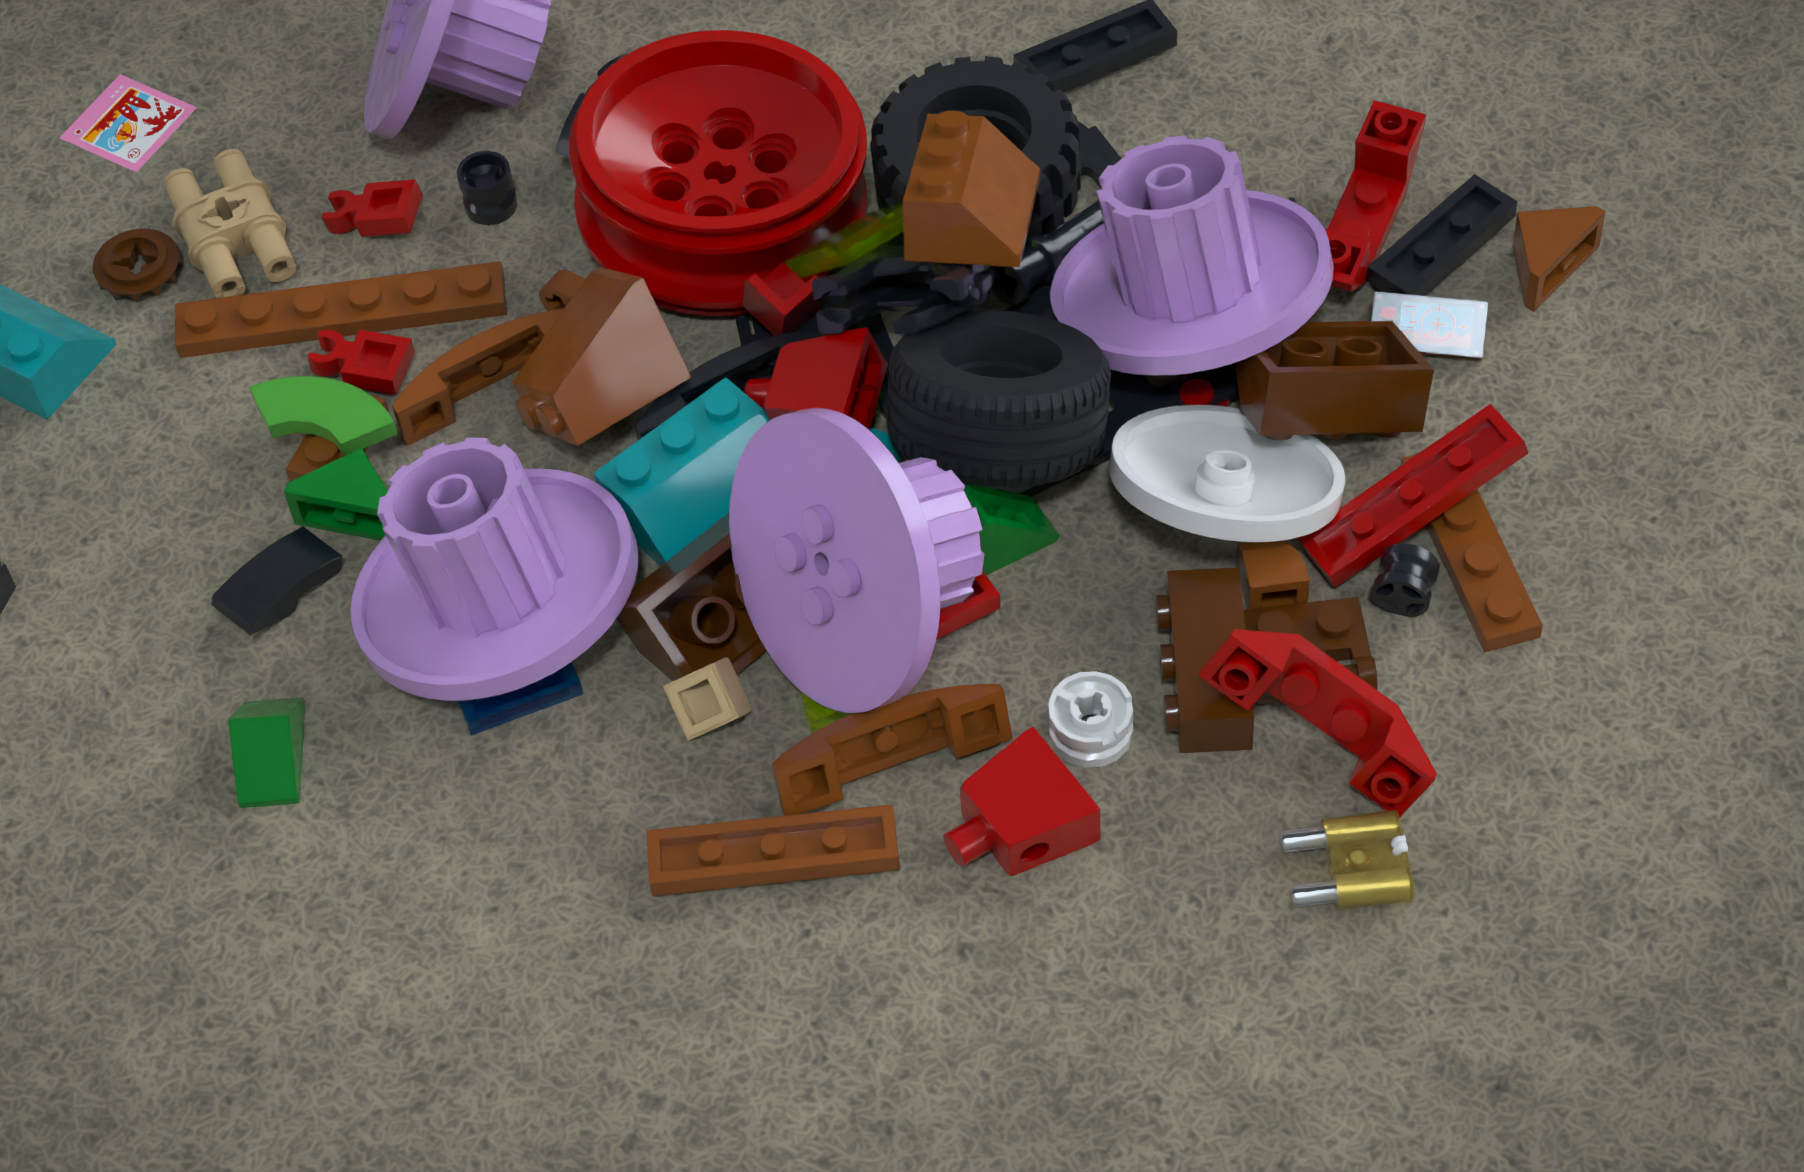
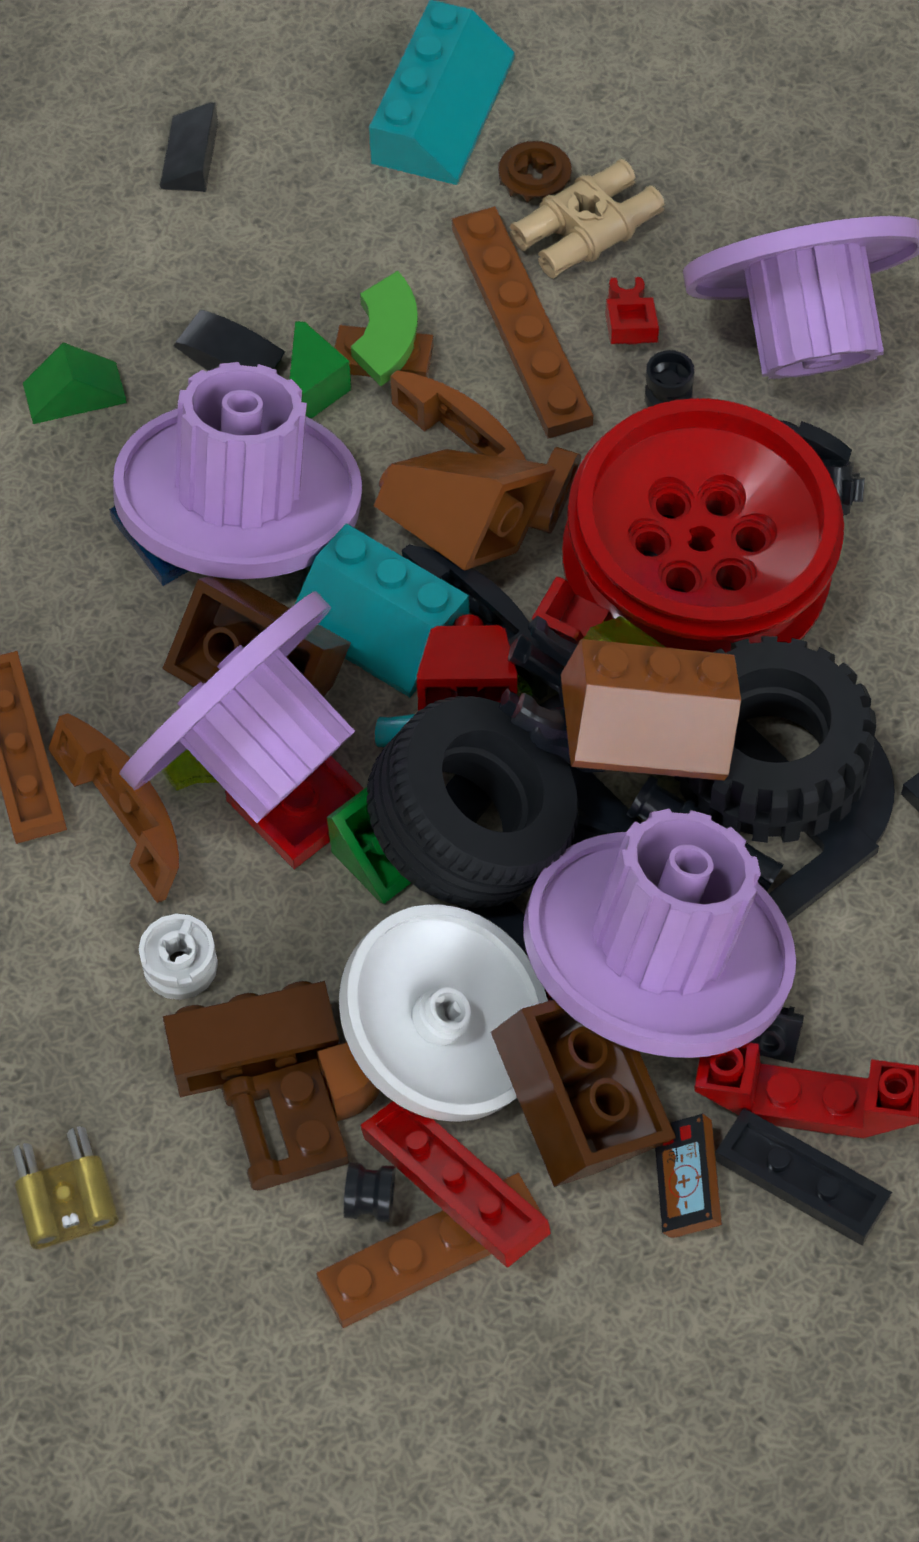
camera: 75 degrees right, 5 degrees up
(128, 123) = (696, 125): sticker -> none
(368, 363) = (463, 349): red plate -> none
(707, 698) = (159, 670): tan slope -> none
(1023, 809) = (77, 918): red torso -> none
(1390, 758) = (156, 1201): red slope -> none
(1552, 247) = (808, 1276): dark orange slope -> none

